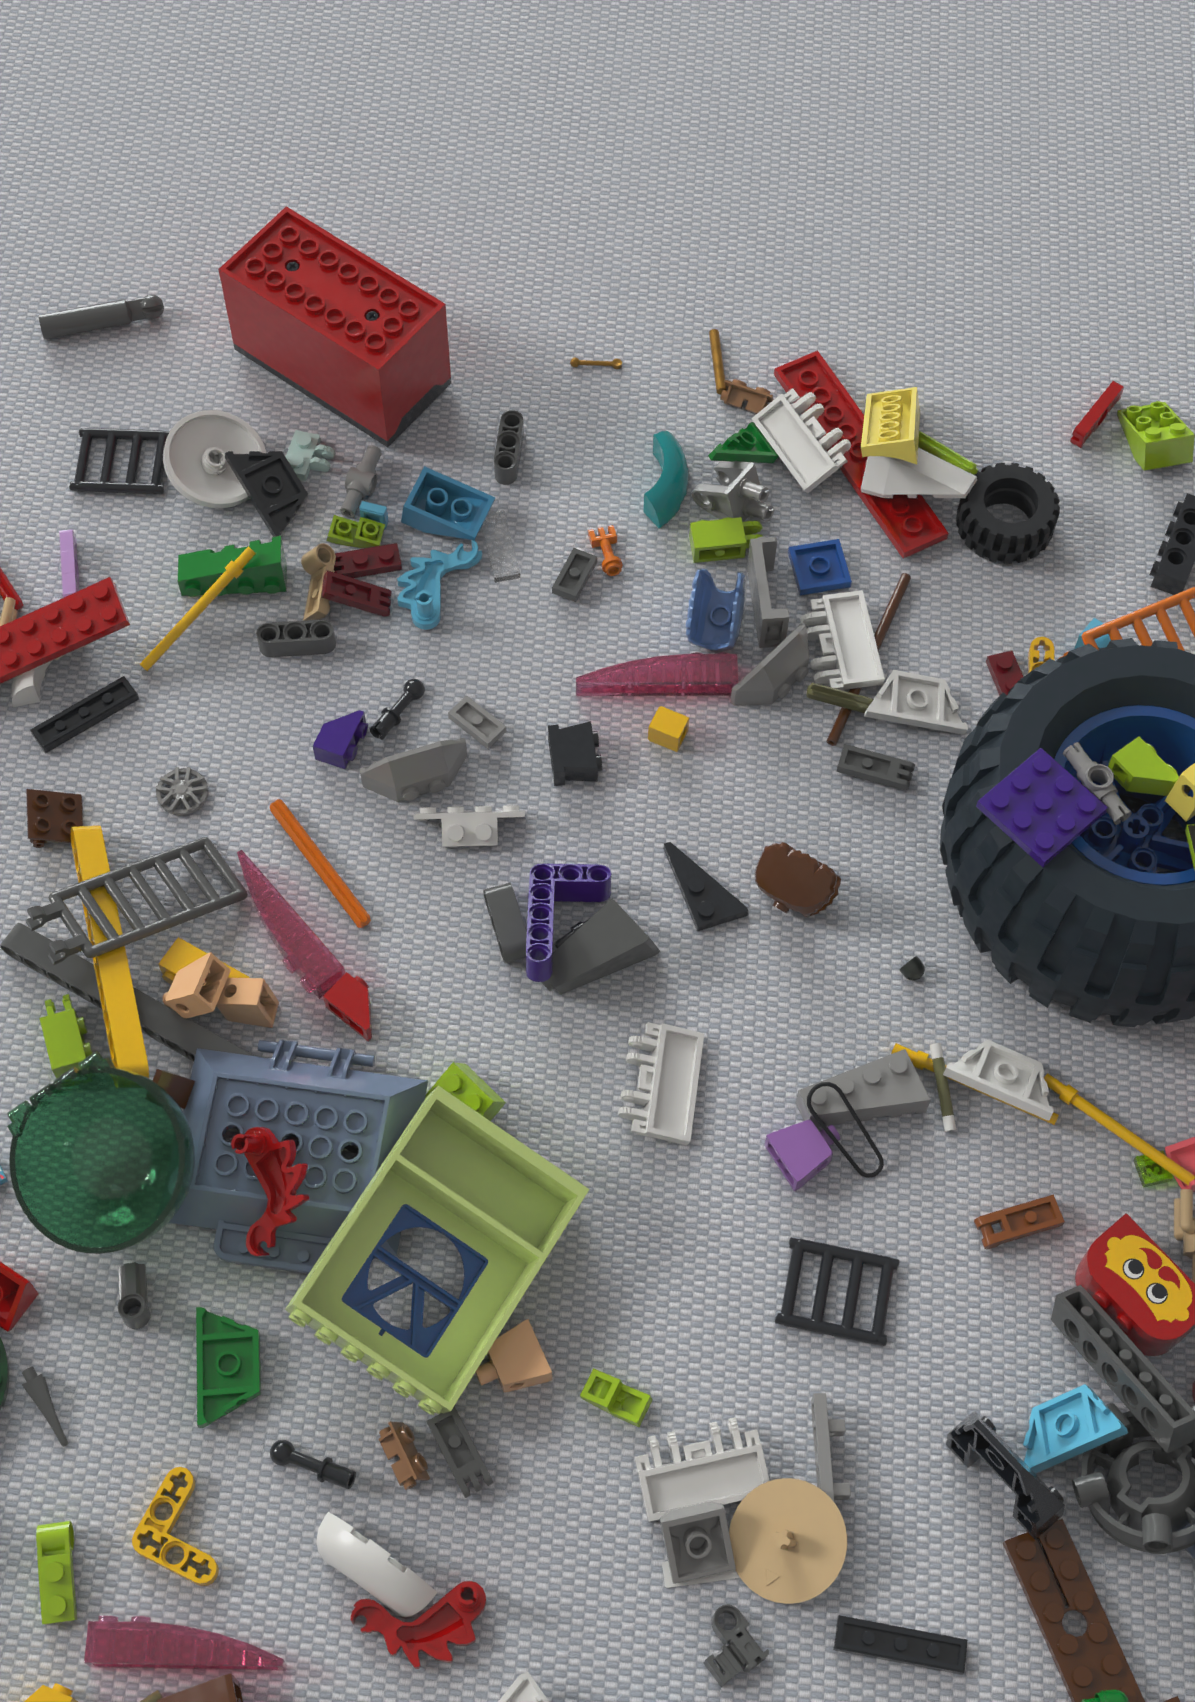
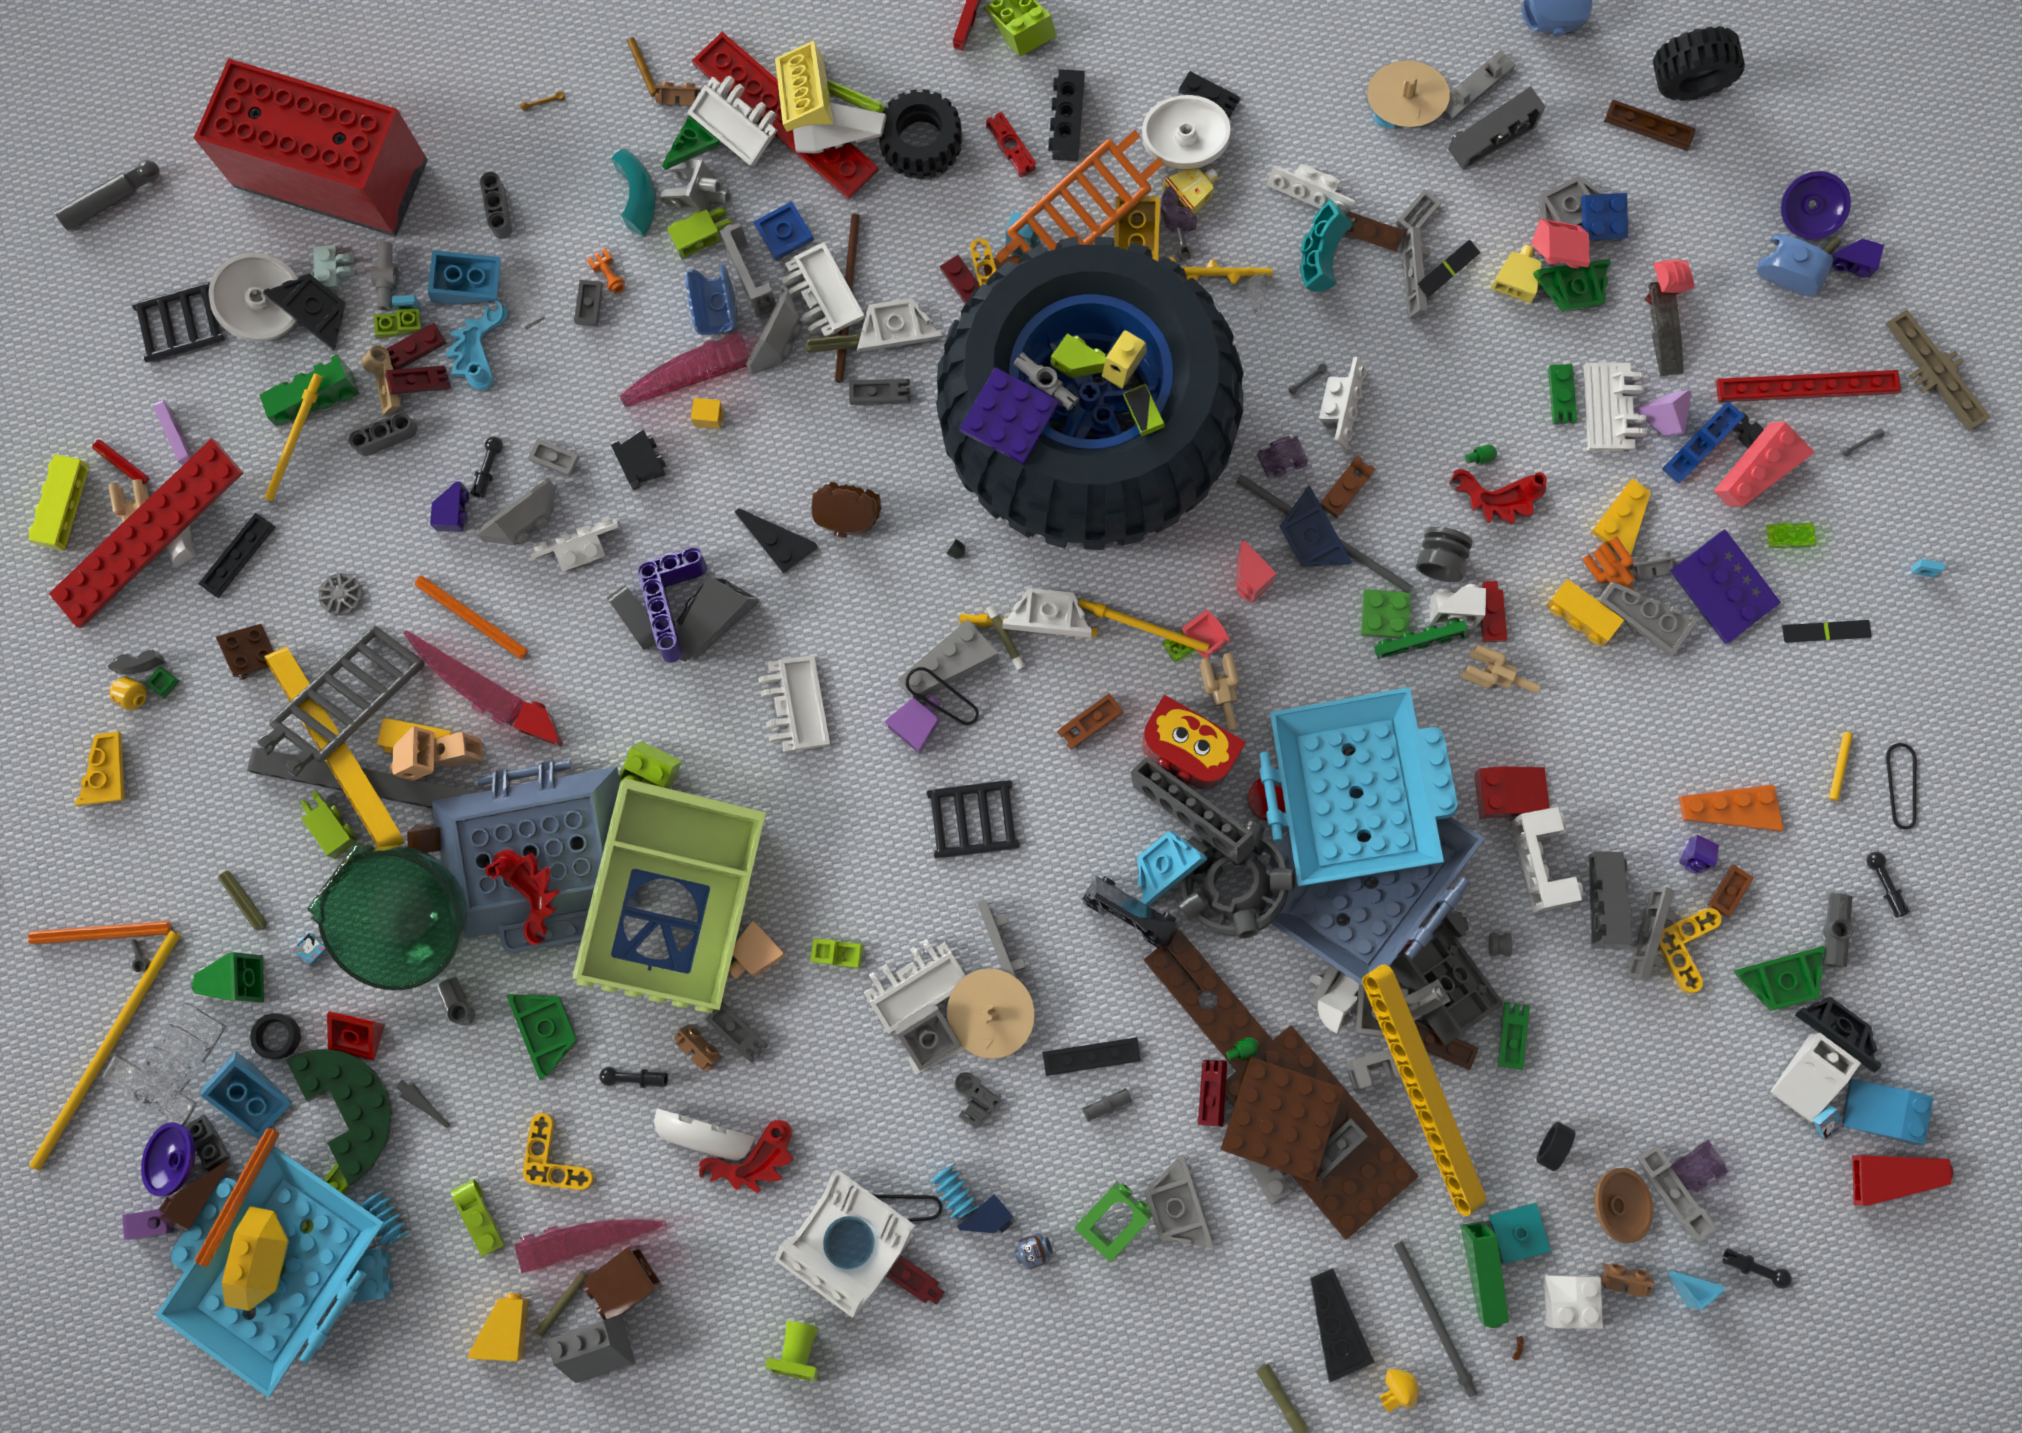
camera: 15 degrees left, 15 degrees up
(1113, 571) = (1019, 155): none -> red piece

